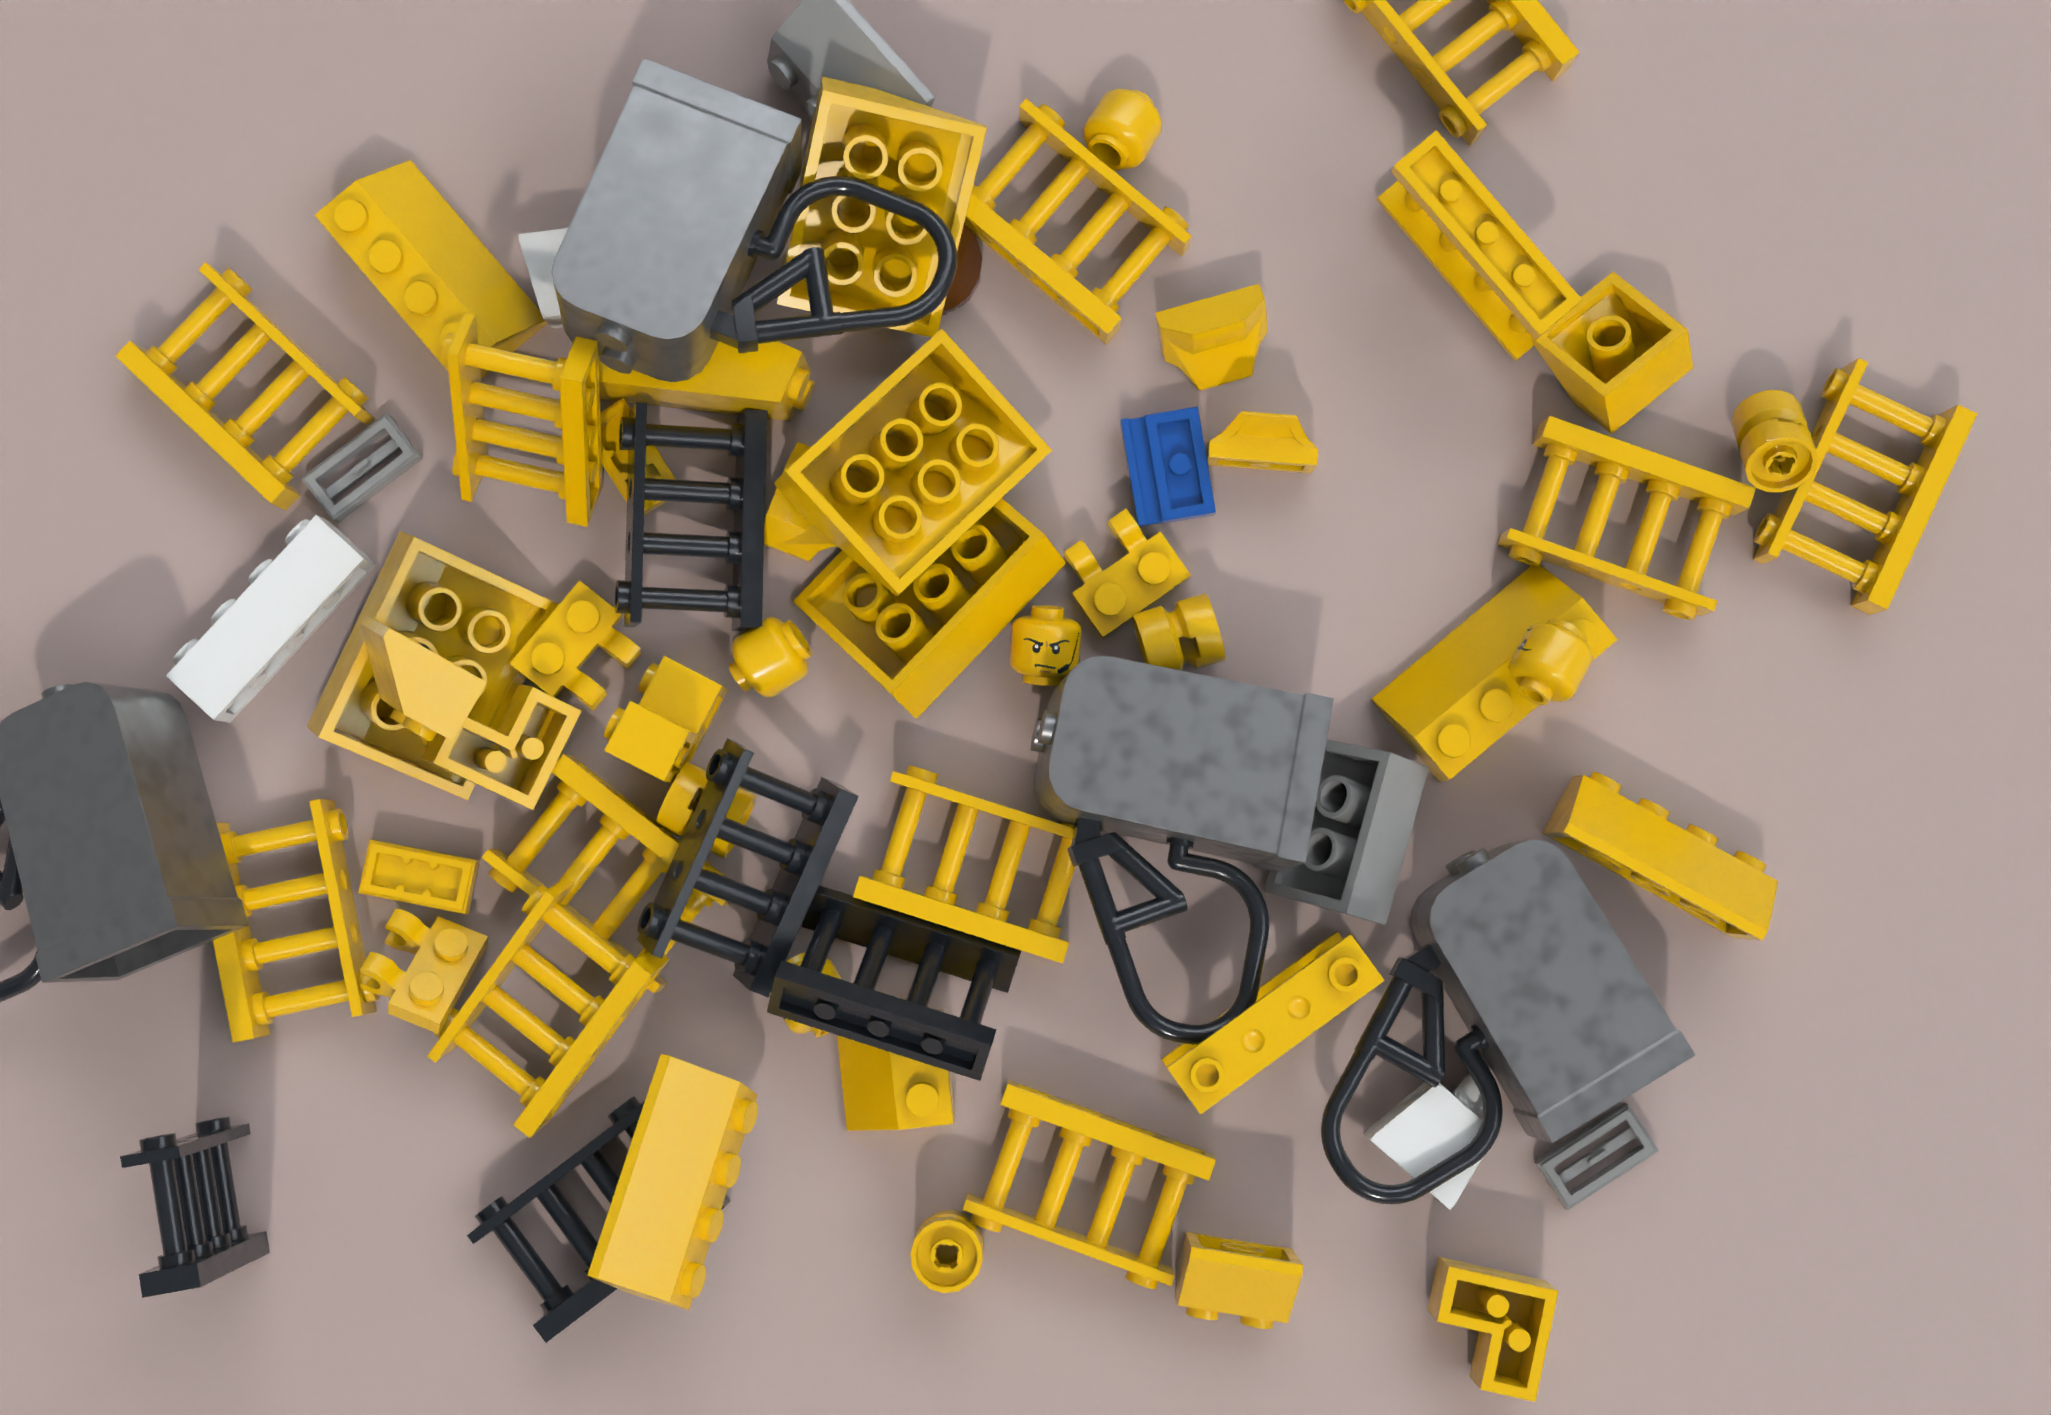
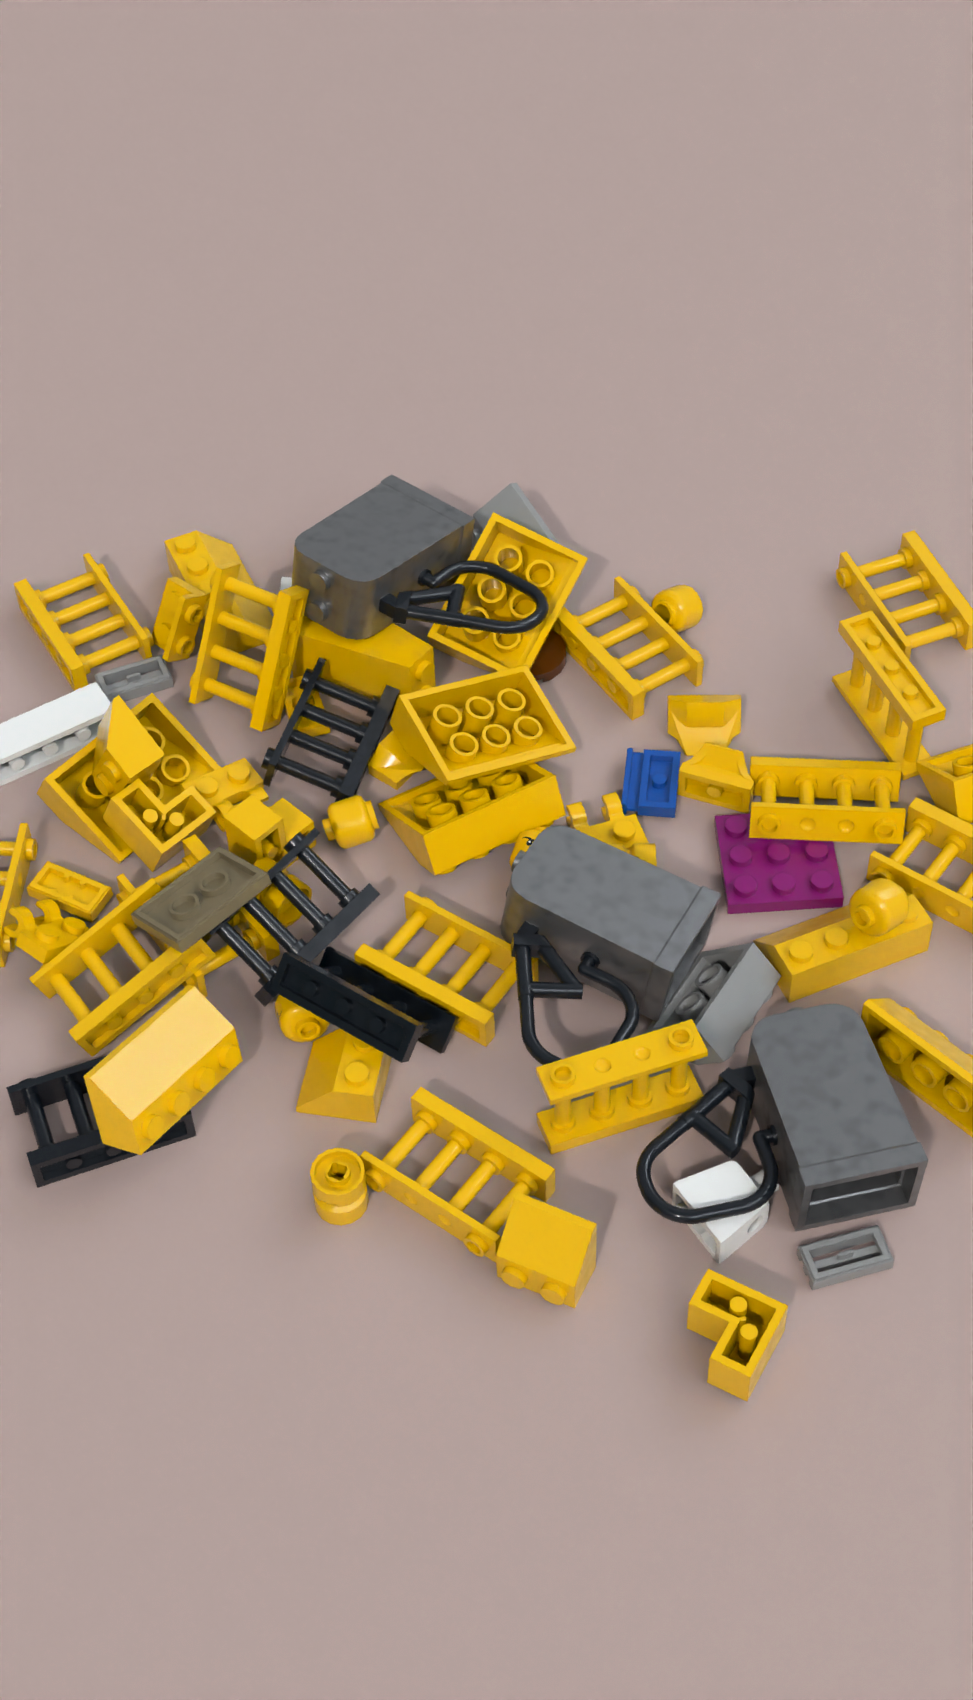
camera: 15 degrees right, 35 degrees down
(393, 361) = (178, 619): none -> yellow bracket
(627, 910) = (200, 899): none -> dark tan tile
(1373, 552) = (774, 872): none -> magenta plate
(1431, 398) = (826, 780): none -> yellow fence

